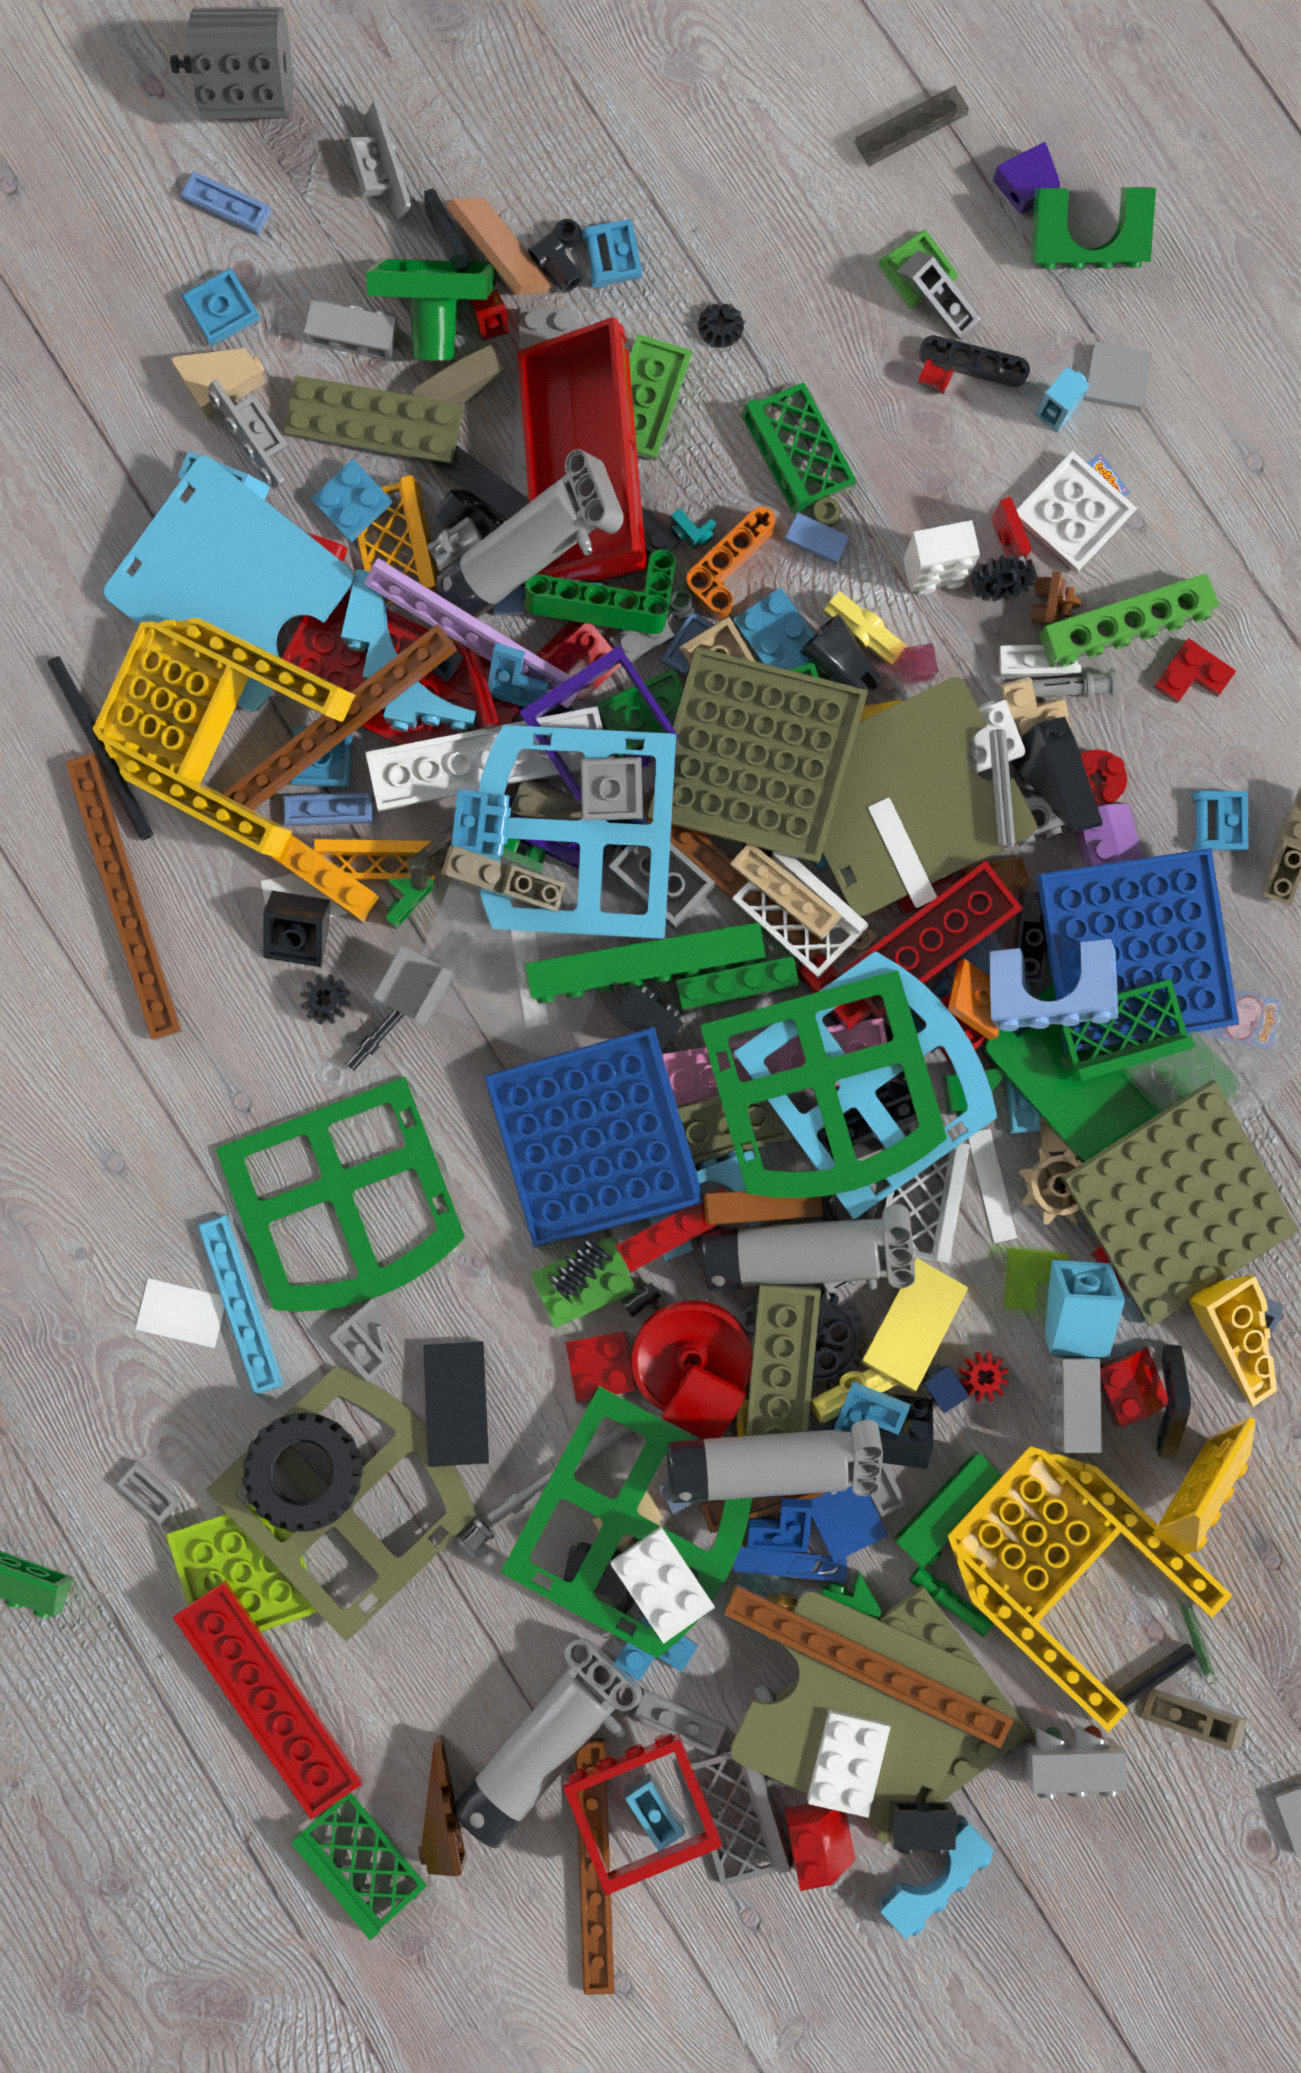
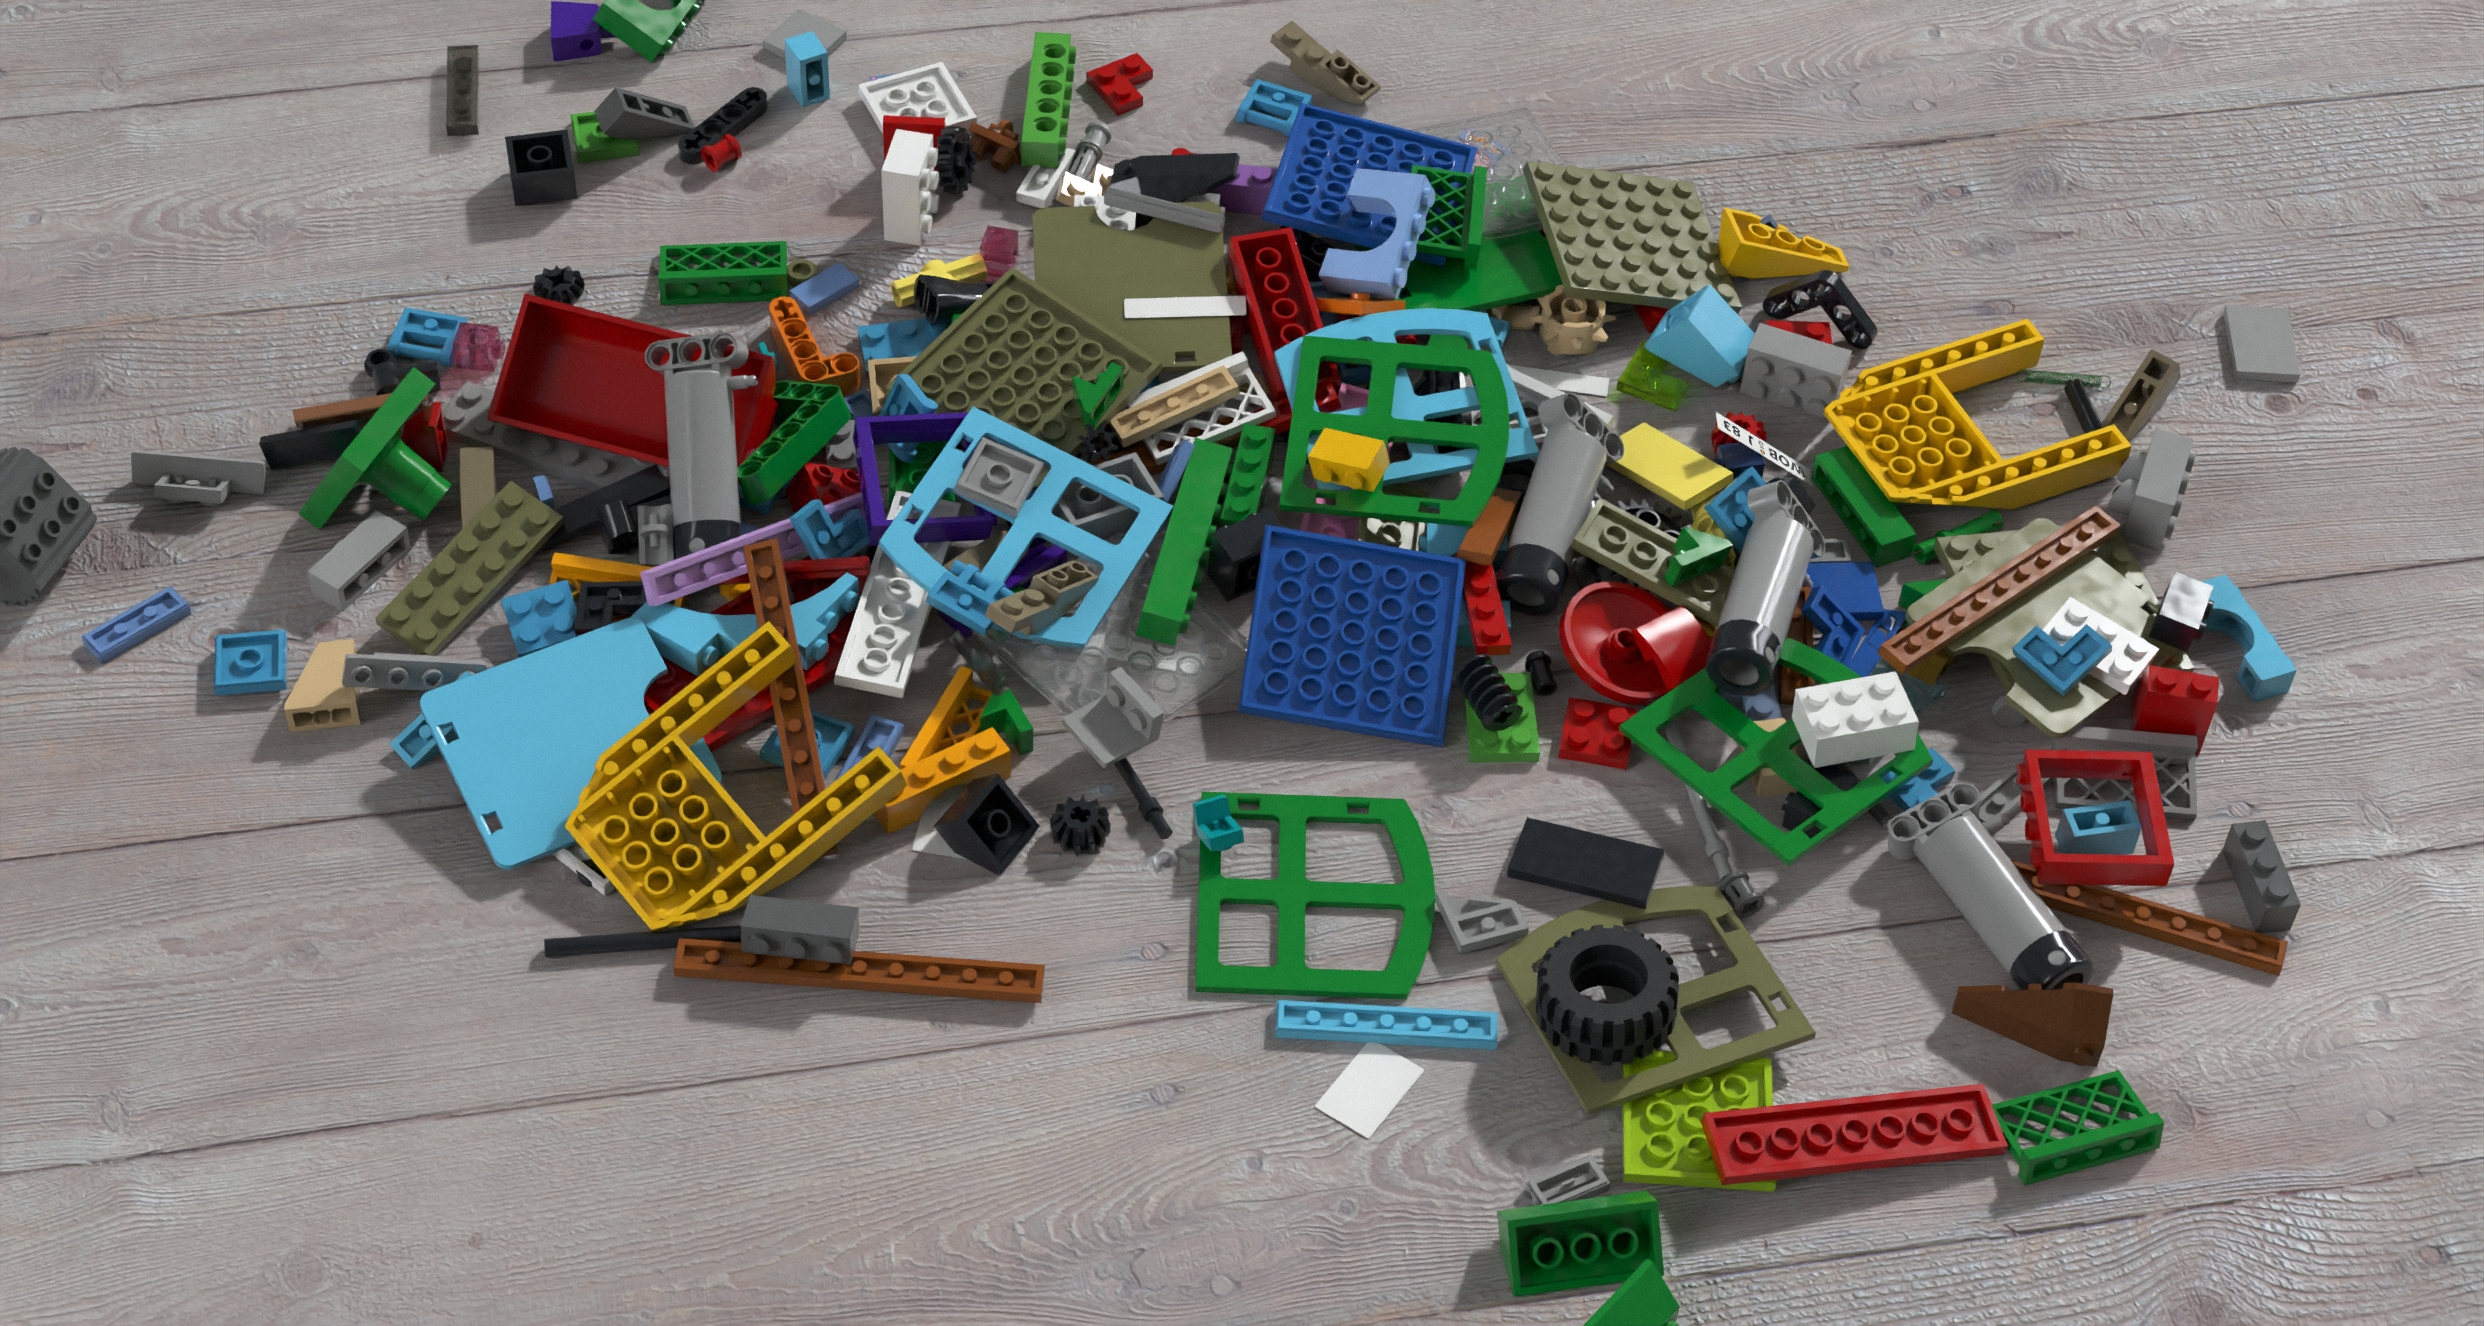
camera: 70 degrees left, 35 degrees down
(95, 1521) = (1579, 1242): none -> green slope
(122, 839) = (800, 929): none -> dark grey brick
(362, 1106) = (1216, 825): none -> teal bracket
(378, 536) = (603, 600): none -> black plate
(476, 436) = (543, 491): none -> medium blue tile
(614, 287) = (478, 347): none -> clear pink brick
(667, 1958) = (2261, 877): none -> dark grey brick
(673, 673) = (905, 399): none -> dark azure plate
(705, 847) = (1104, 437): none -> black gear
(717, 919) = (1174, 468): none -> medium blue tile
(740, 825) = (1096, 398): none -> green slope
(760, 1066) = (1348, 459): none -> yellow brick
(793, 1398) = (1696, 555): none -> green slope
(798, 1743) = (2066, 664): none -> dark azure plate
(838, 240) = (541, 167): none -> black brick
(963, 1405) = (1763, 448): none -> white sticker
(1206, 1488) = (1914, 291): yellow slope -> none

